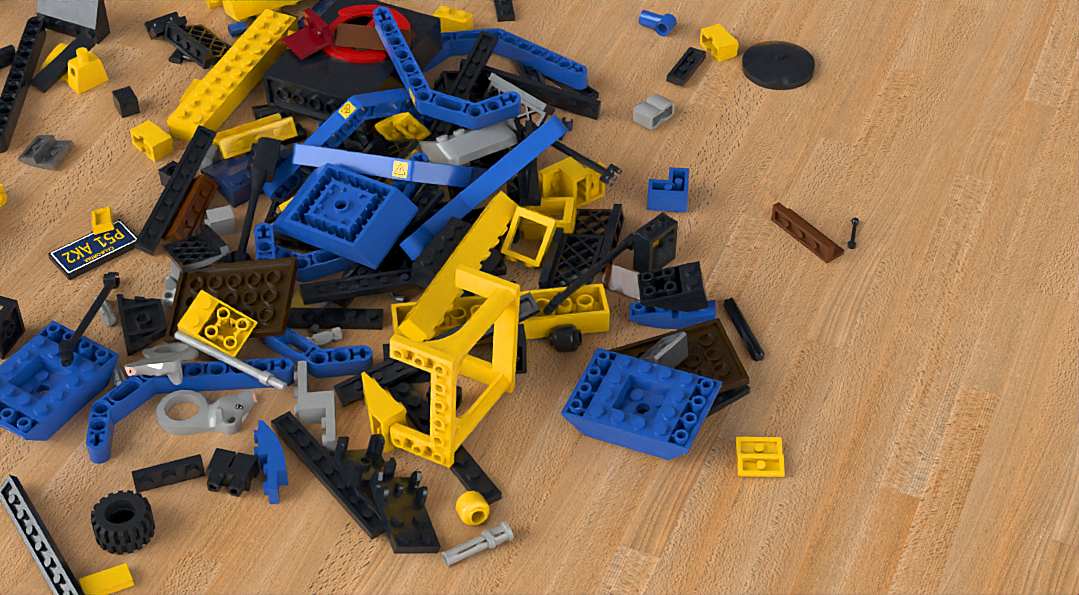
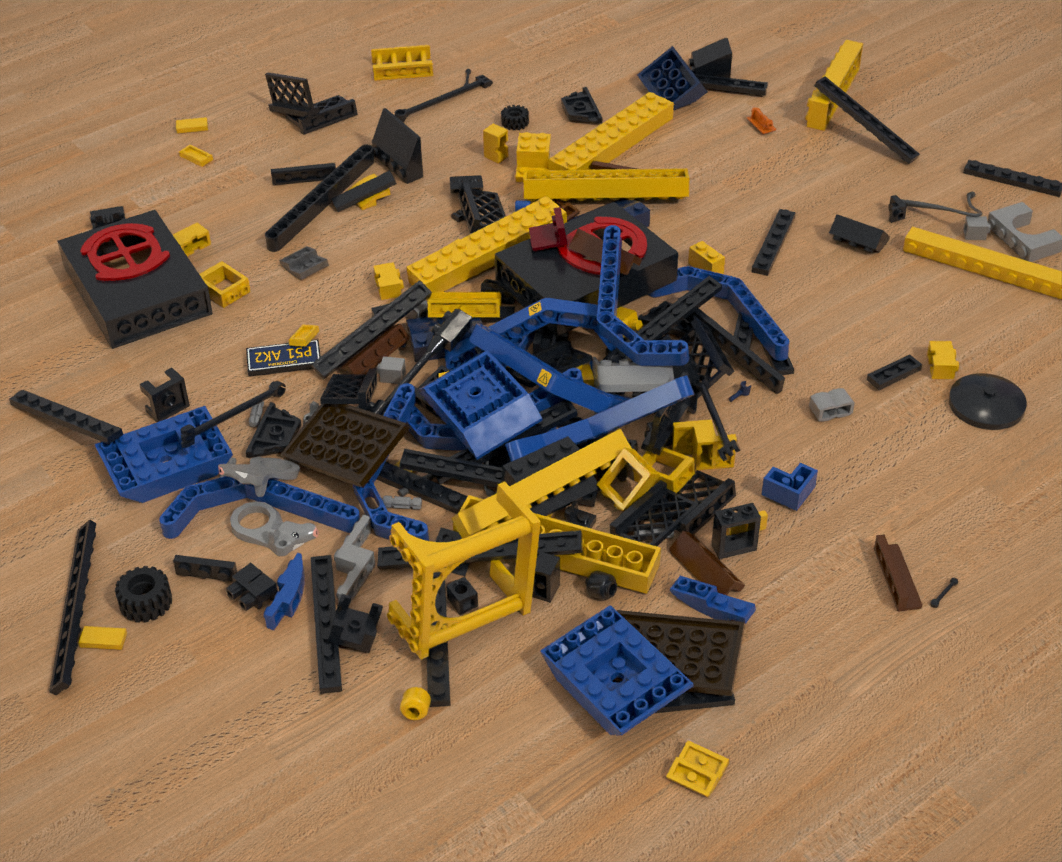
camera: 30 degrees right, 0 degrees up
(85, 71) = (375, 204): yellow torso -> none
(125, 101) = (390, 240): black brick -> none
(216, 324) = (315, 457): yellow slope -> none
(264, 376) = (326, 517): light grey bar -> none
(382, 409) = (394, 584): yellow slope -> none
(402, 127) = (586, 341): yellow slope -> none
(404, 513) = (357, 684): black hinge -> none
(487, 536) = (370, 737): light grey pin -> none
(627, 243) = (603, 547): black hinge -> none
(659, 23) = (899, 323): blue piece -> none
(668, 351) = (670, 637): flat silver slope -> none
(674, 288) = (721, 578): black slope -> none
(744, 329) = (770, 643): black axle -> none

